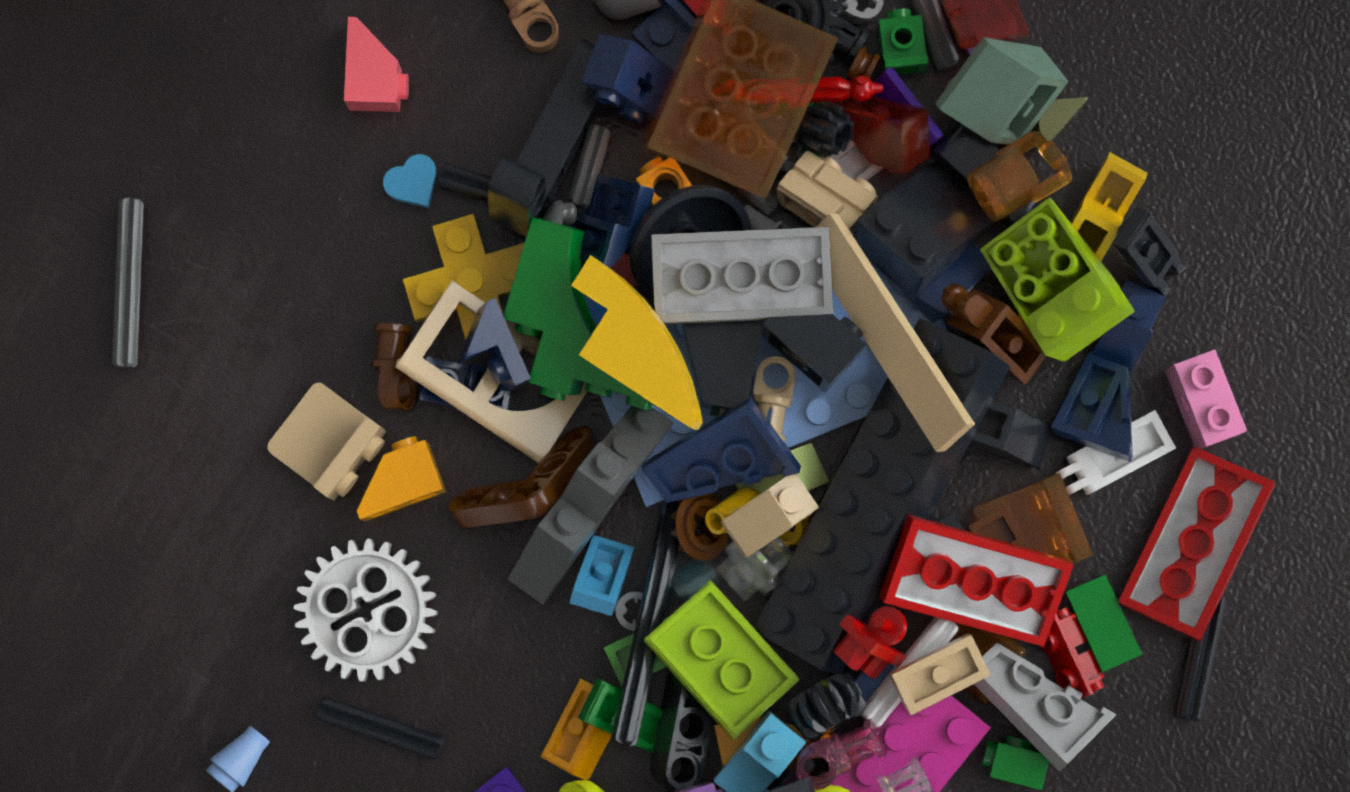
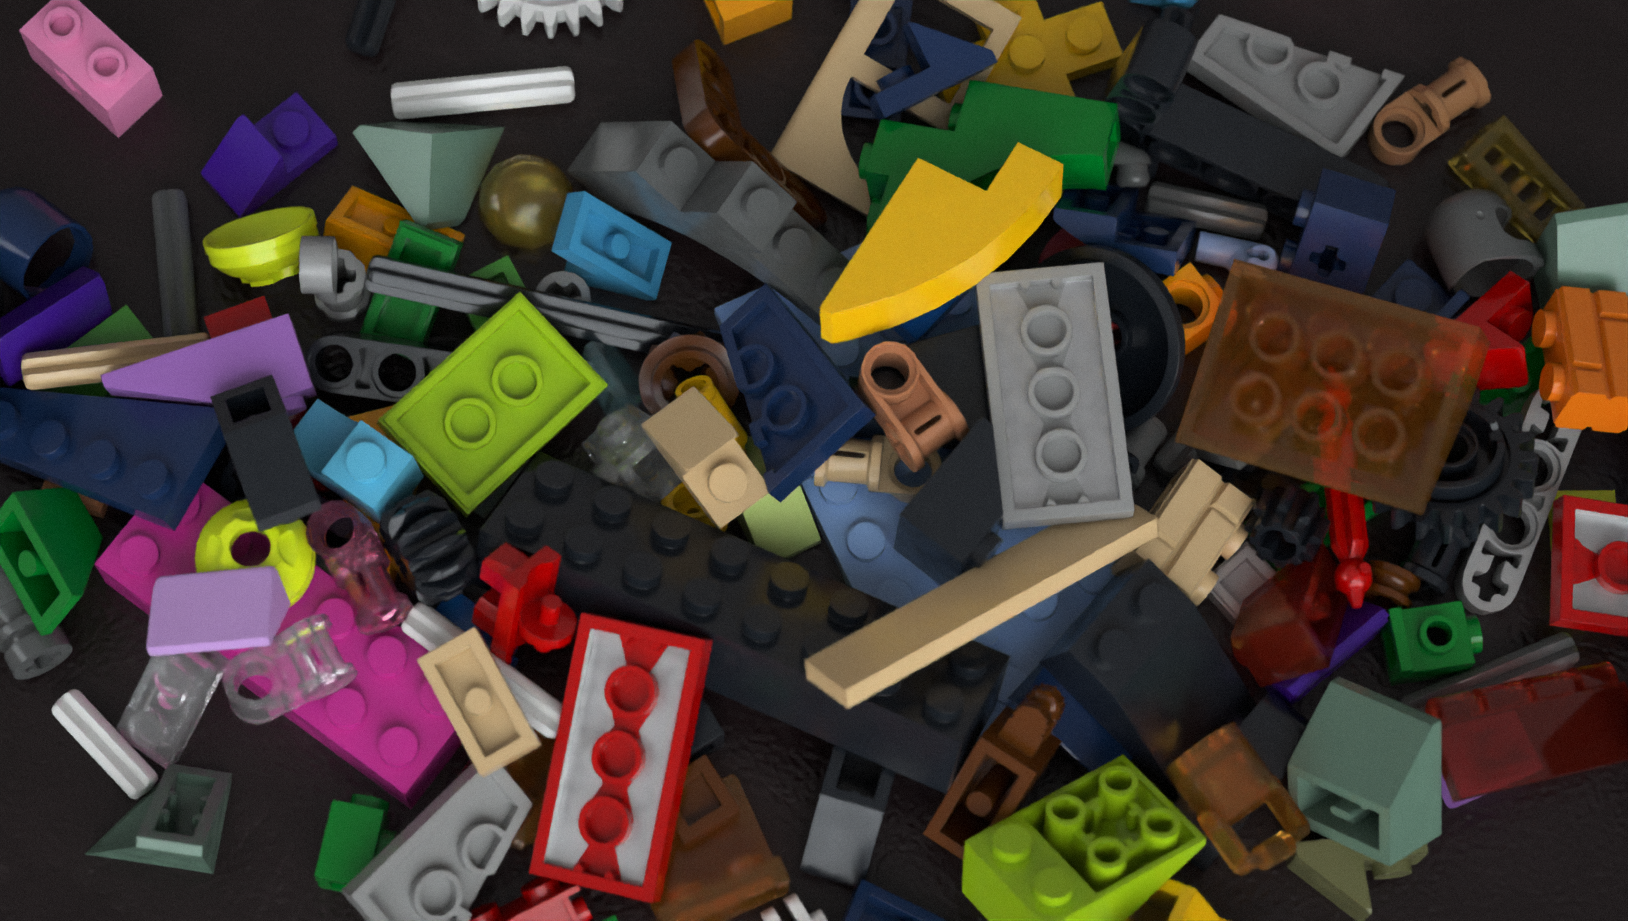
camera: 80 degrees right, 10 degrees down
(476, 662) = (482, 92): none -> white axle
(506, 96) = (1290, 86): none -> light grey wing
(530, 700) = (431, 165): none -> sand green slope
(559, 635) = (523, 200): none -> clear yellow hair
(618, 778) = (319, 269): none -> light grey connector
(625, 143) = (1222, 251): none -> light blue arm
(748, 372) = (915, 416): none -> nougat piece

